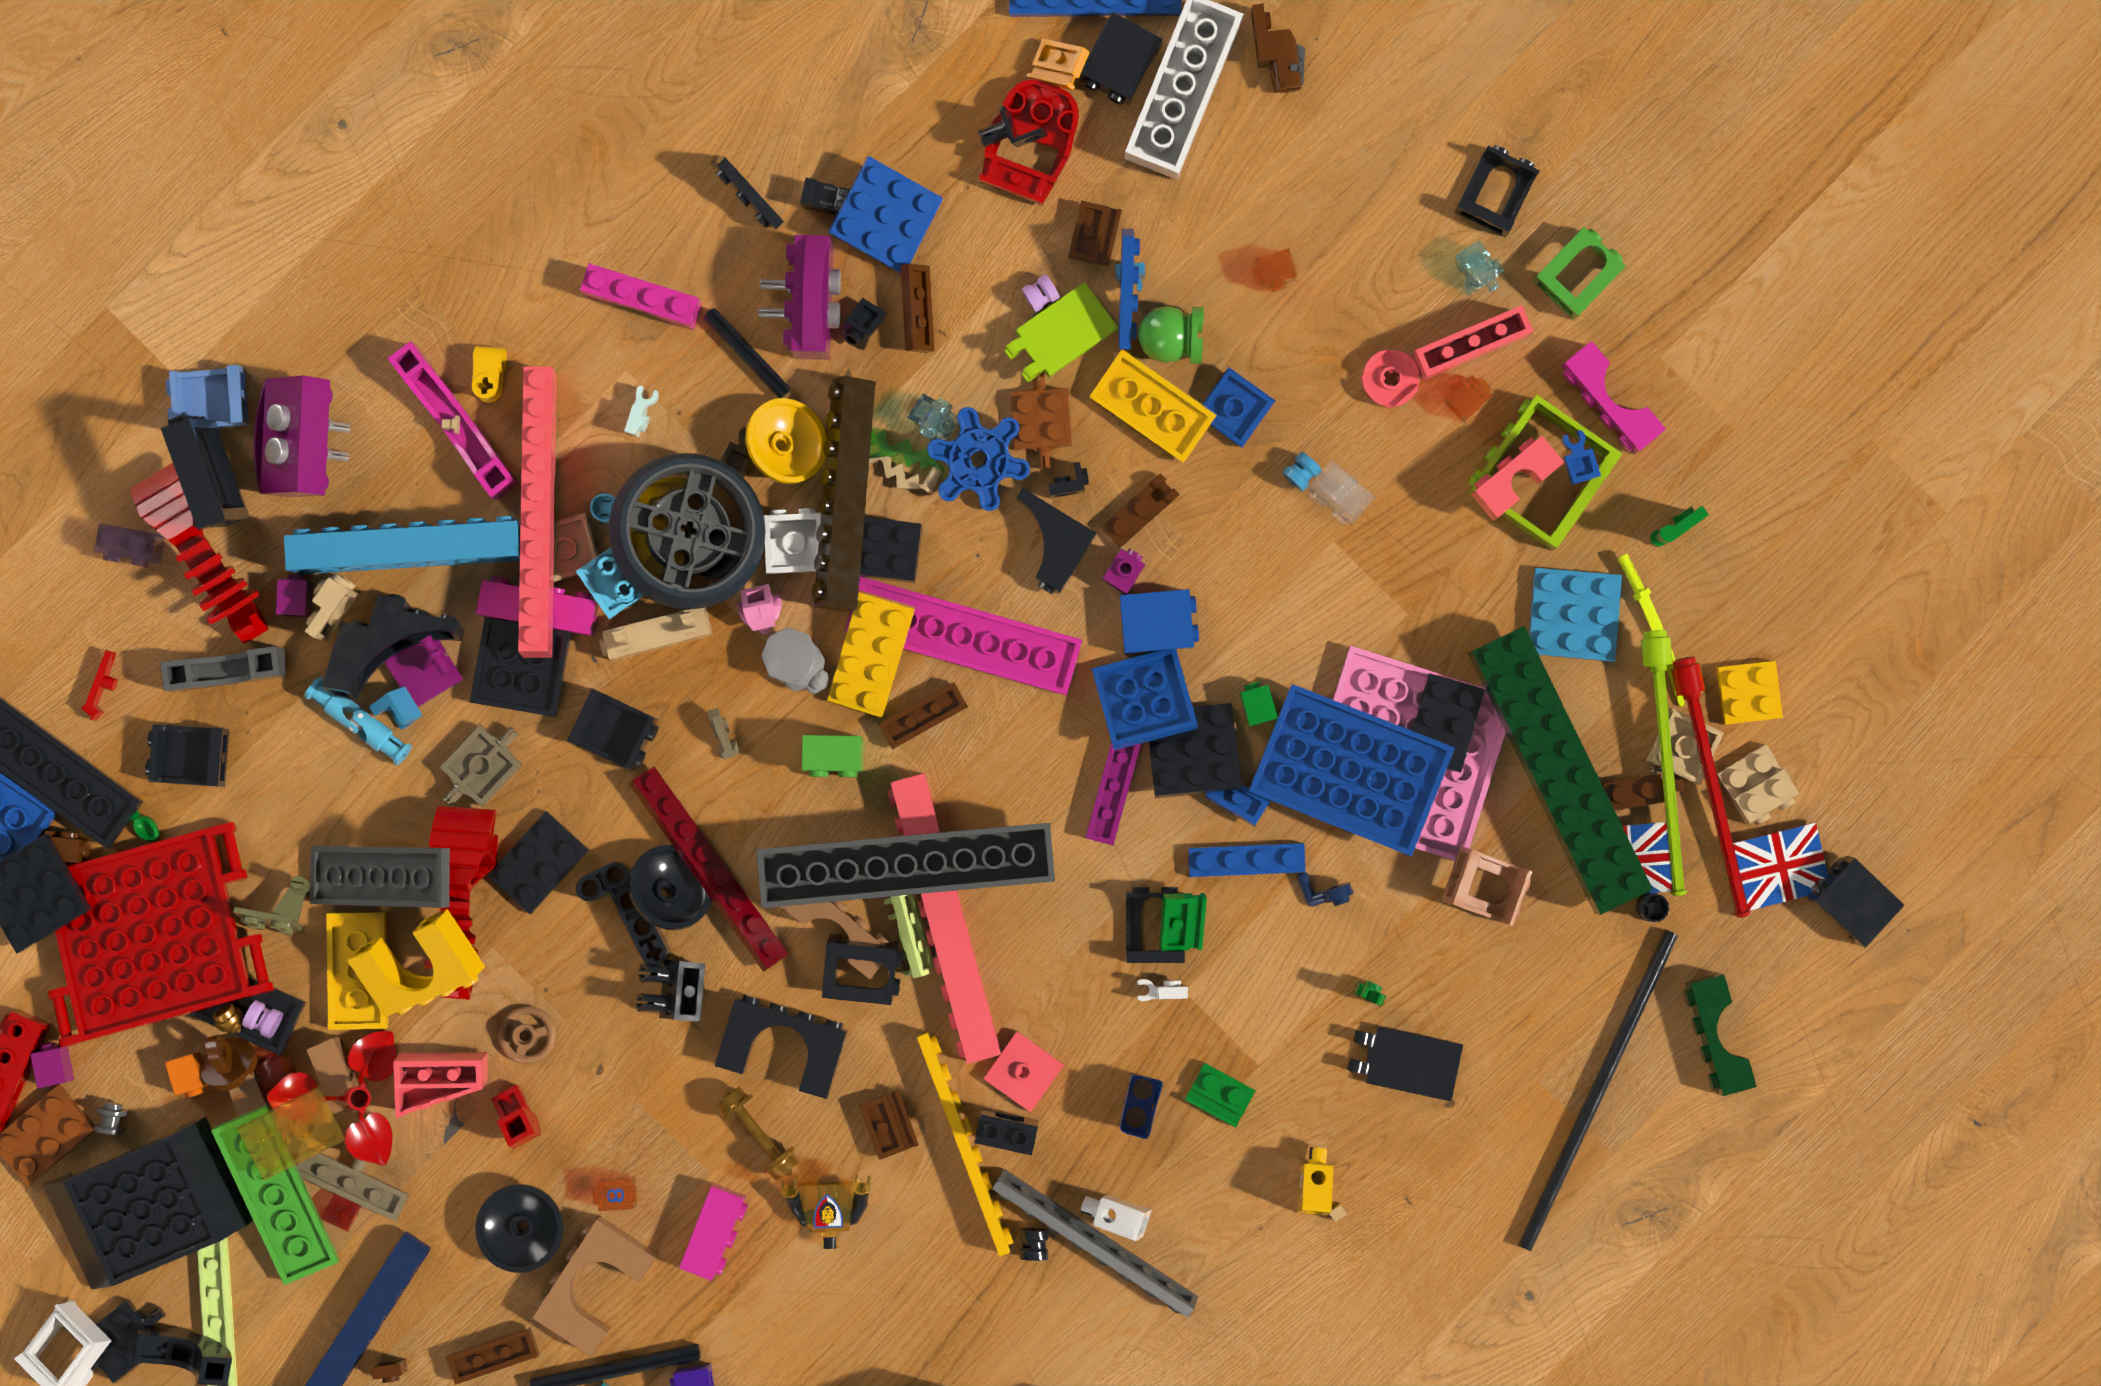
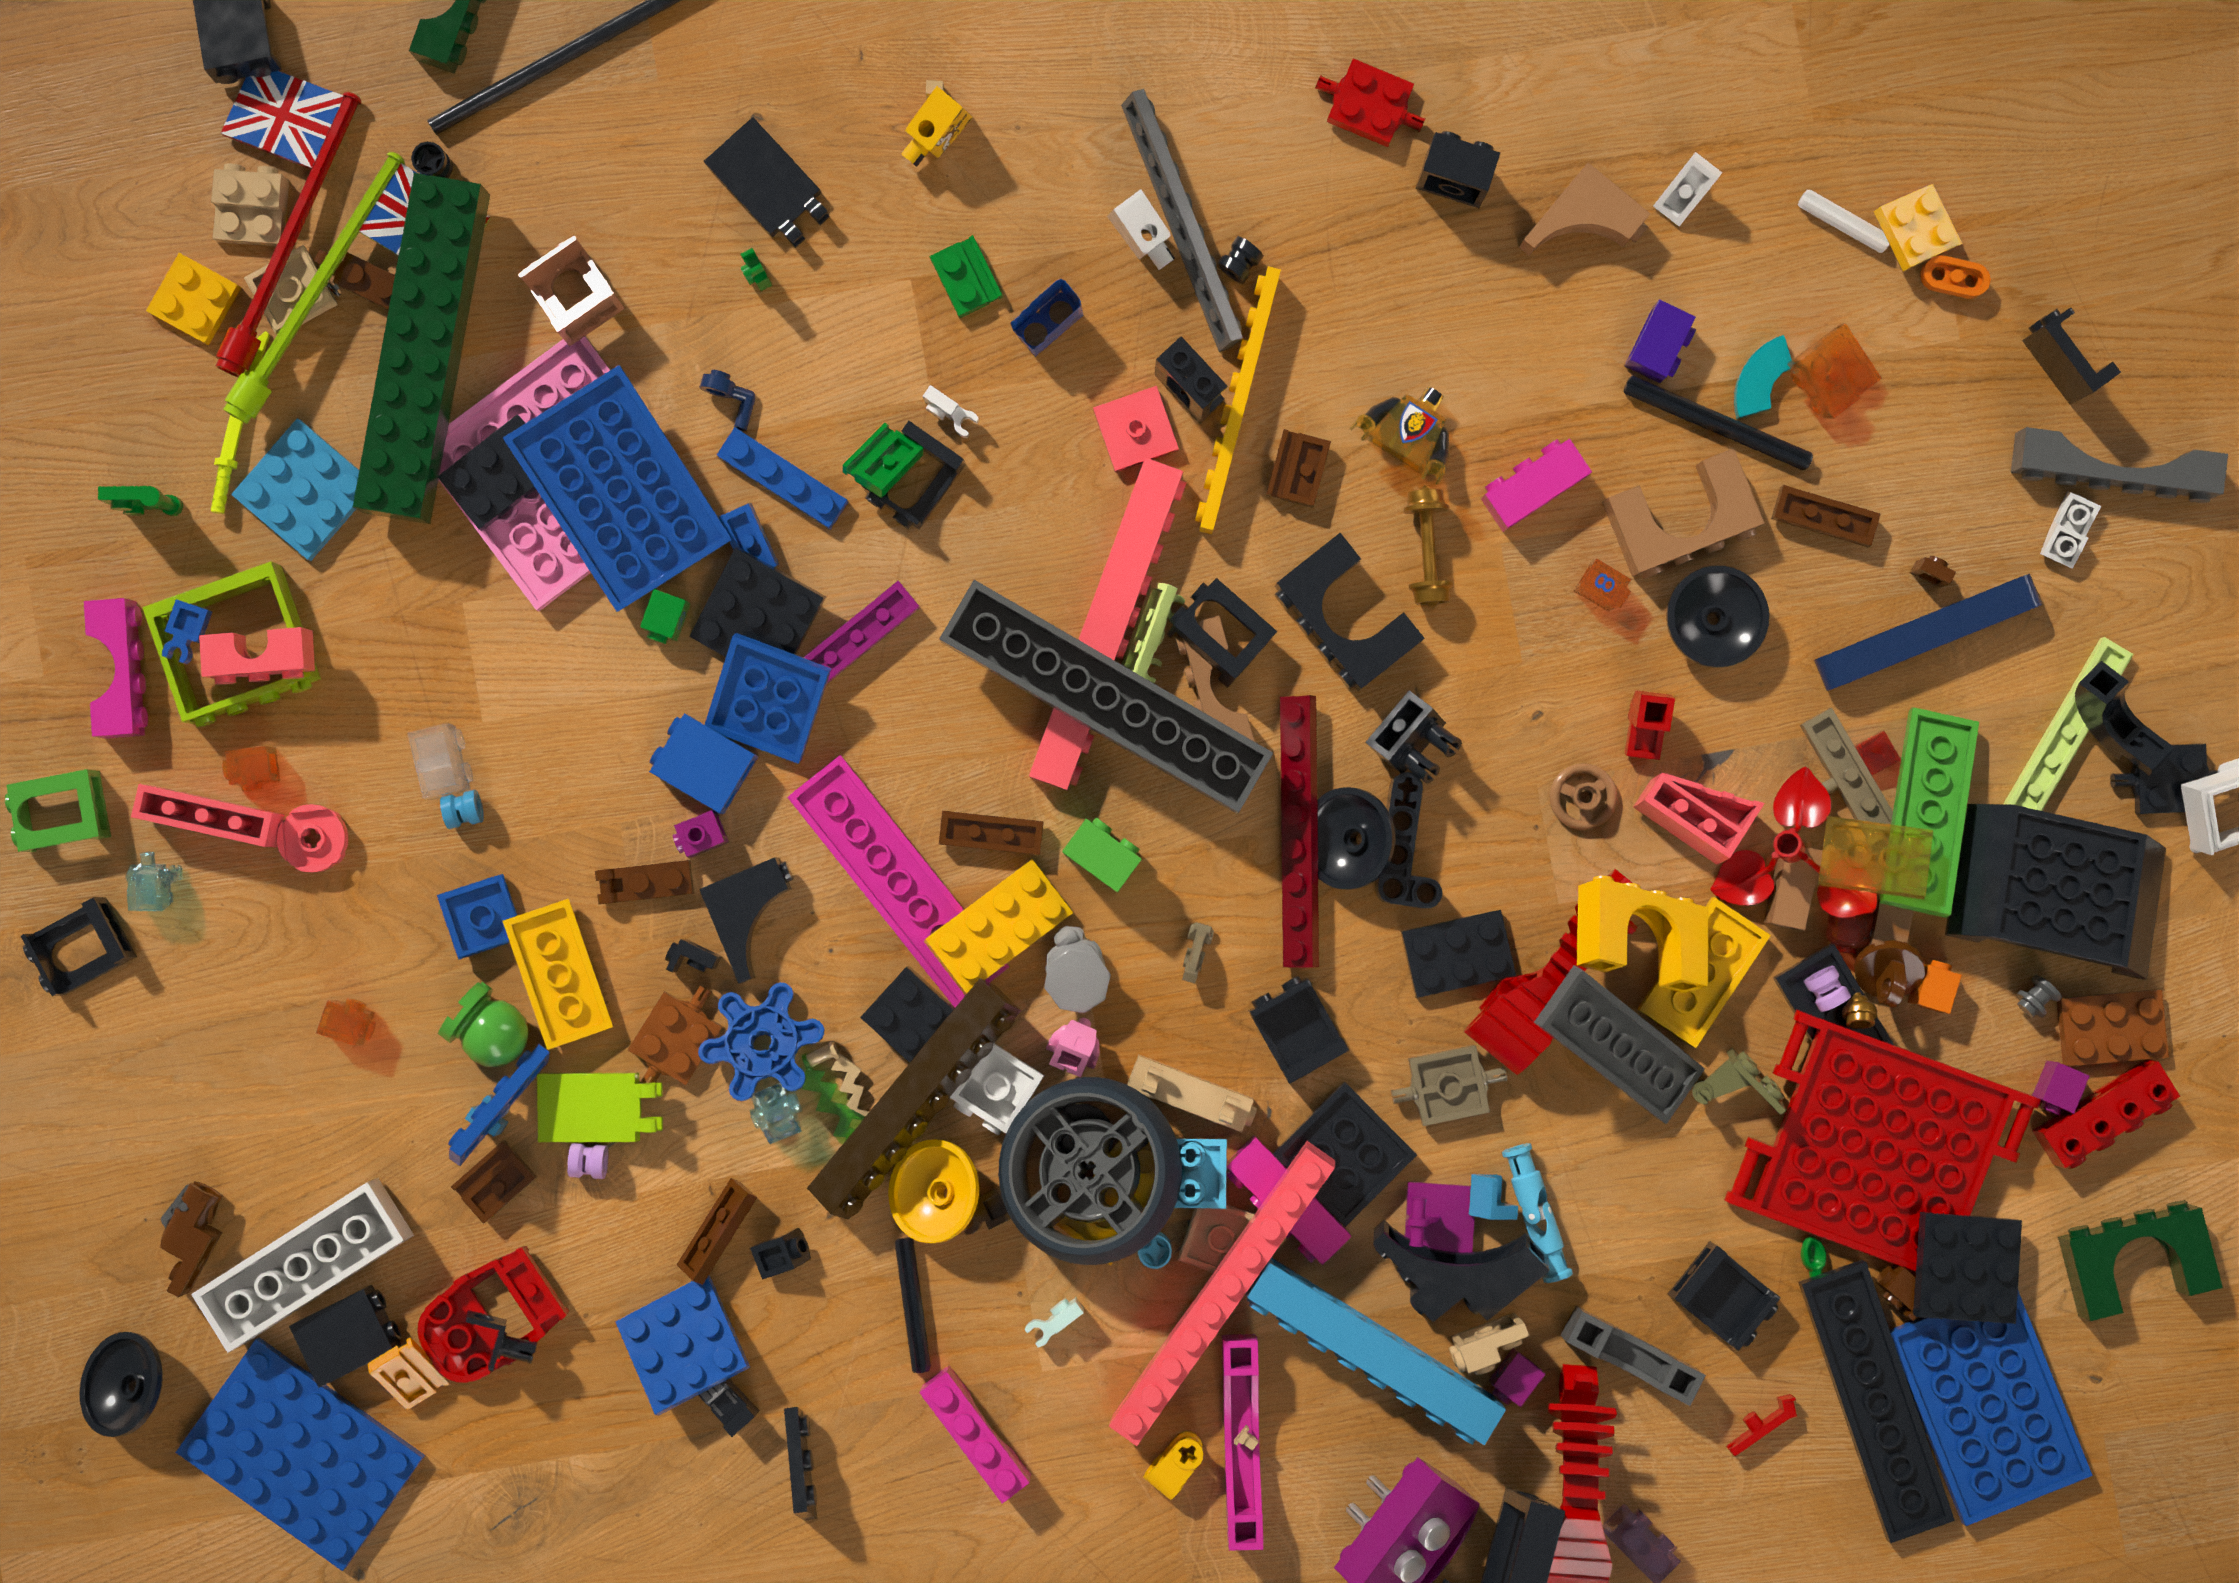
camera: 150 degrees left, 0 degrees up
(812, 290) = (801, 1325): magenta piece -> none

